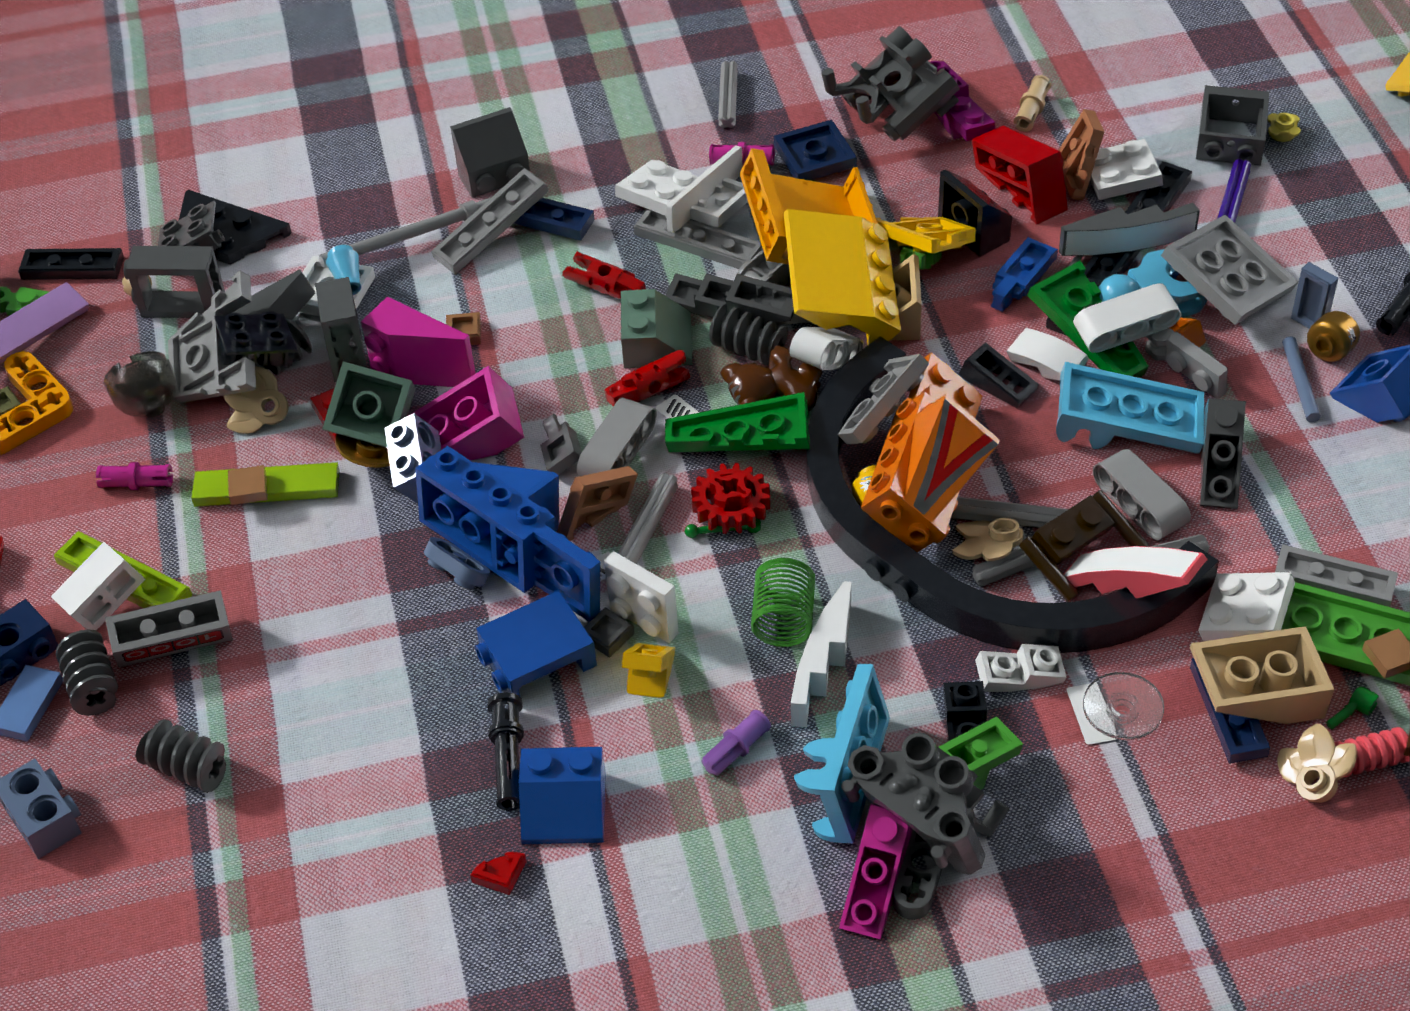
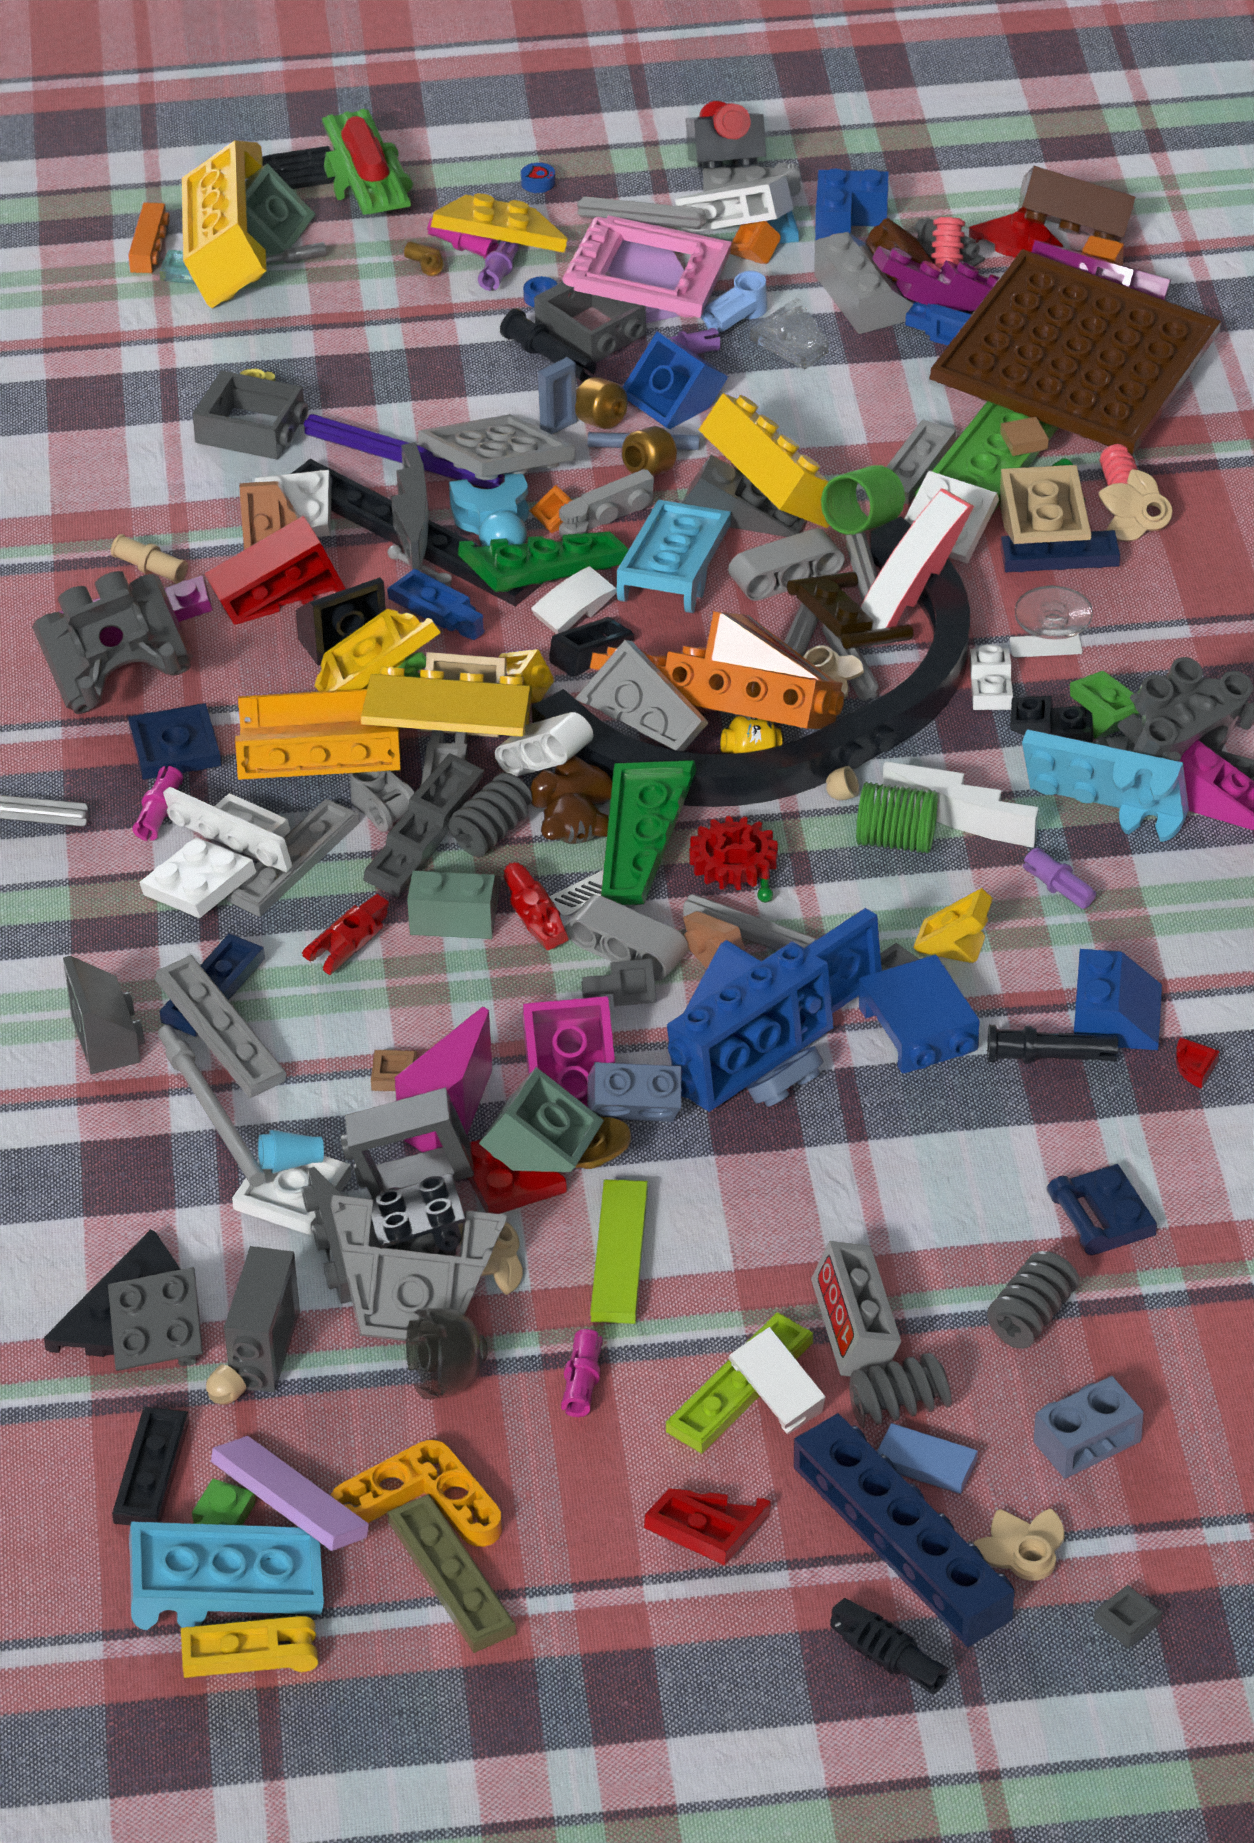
camera: 85 degrees left, 5 degrees down
(247, 485) = (633, 1252): medium nougat tile -> none
(311, 817) = (1112, 1202): none -> dark blue plate
(641, 597) = (891, 900): white plate -> none
(832, 568) = (842, 784): none -> tan hinge
(939, 336) = (533, 669): none -> yellow bracket
(1127, 318) = (565, 517): white beam -> none
(1208, 512) = (884, 494): none -> bright green piece
(1264, 454) = (766, 457): none -> yellow slope
(1272, 377) = (649, 450): none -> pearl gold head

